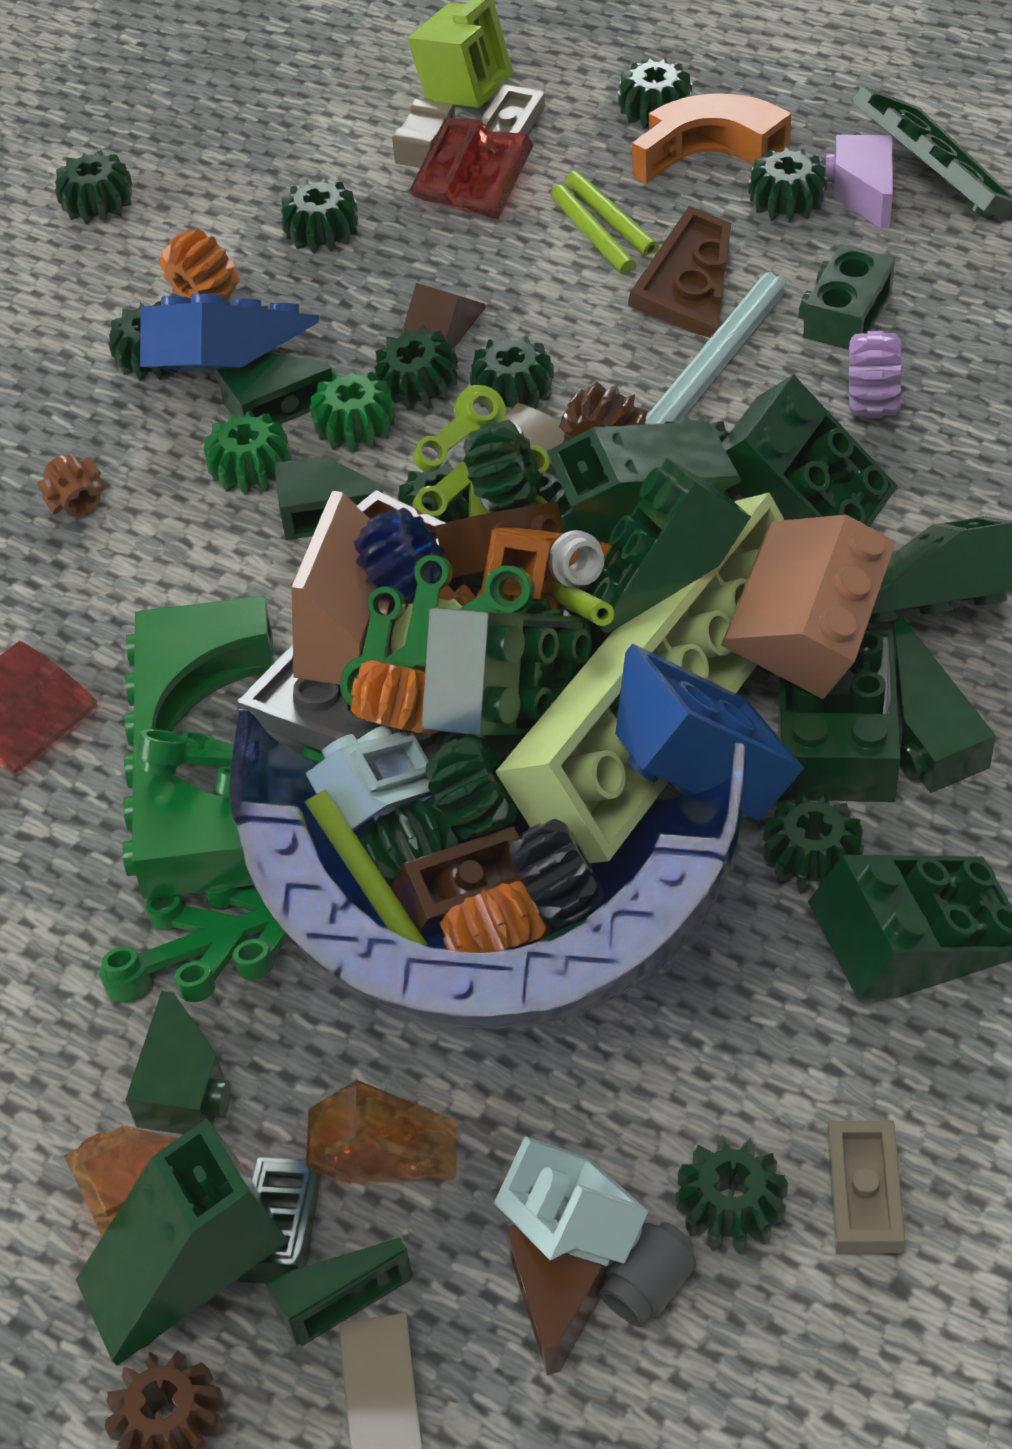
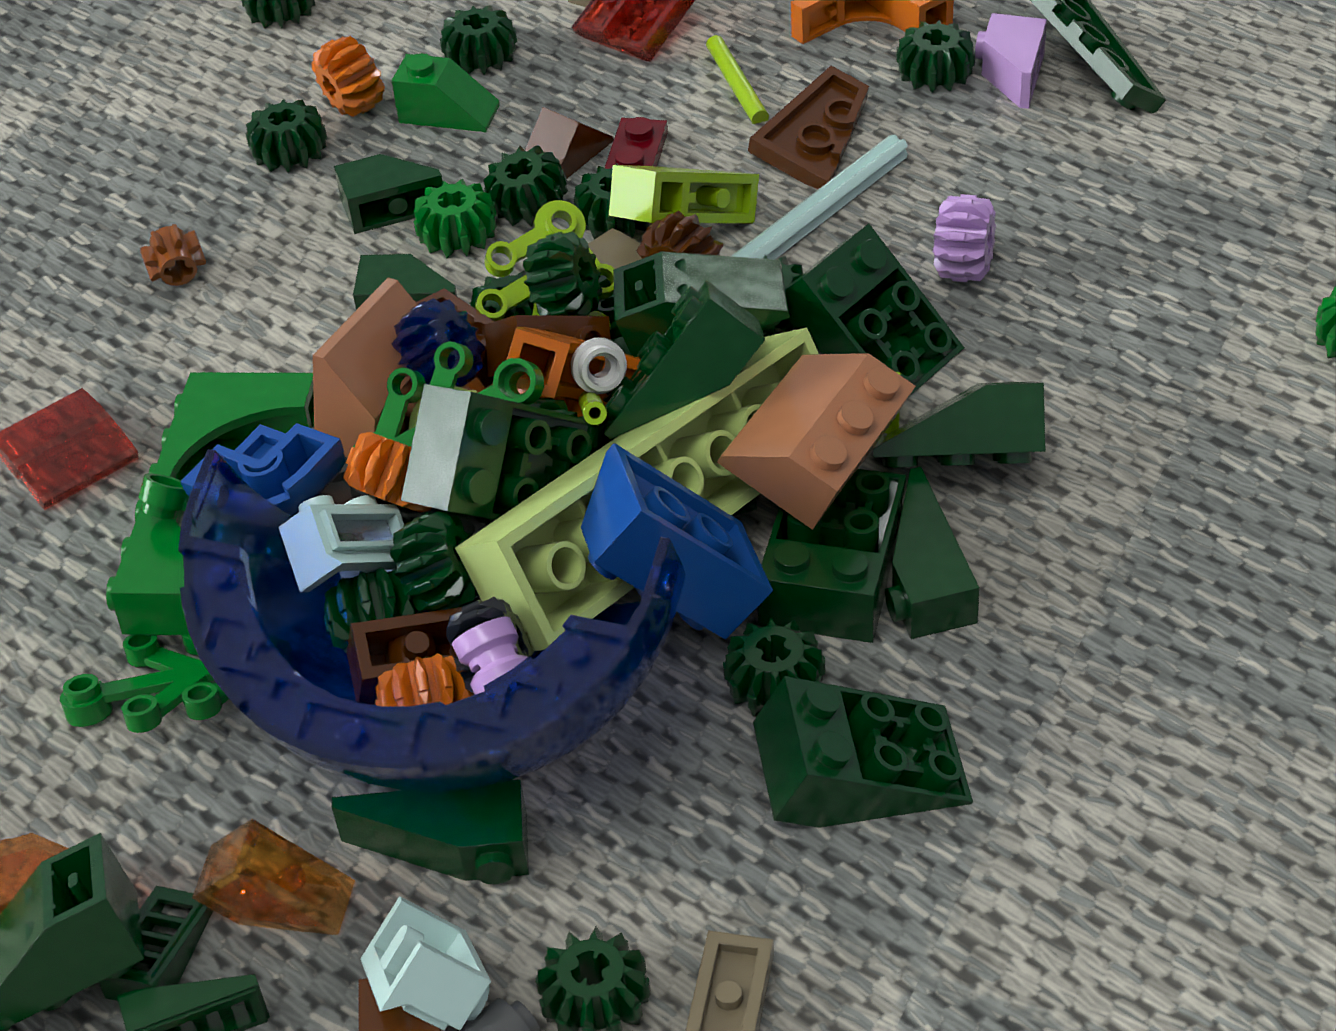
camera: 10 degrees right, 5 degrees down
(176, 1074) = (100, 795): dark green slope -> none
(213, 333) = (334, 132): blue slope -> none
(245, 451) = (338, 241): green gear -> none
(286, 703) = (282, 465): none -> blue brick
(301, 275) = (441, 95): none -> green slope
(362, 867) = (313, 622): lime piece -> none
(513, 310) = (638, 142): none -> dark red plate
(543, 1061) = (452, 832): none -> dark green slope
(576, 361) = (655, 192): none -> lime slope
(577, 885) = (488, 651): none -> lavender wheel
(611, 213) = (758, 66): lime piece -> none
(847, 296) = (963, 161): dark green brick -> none

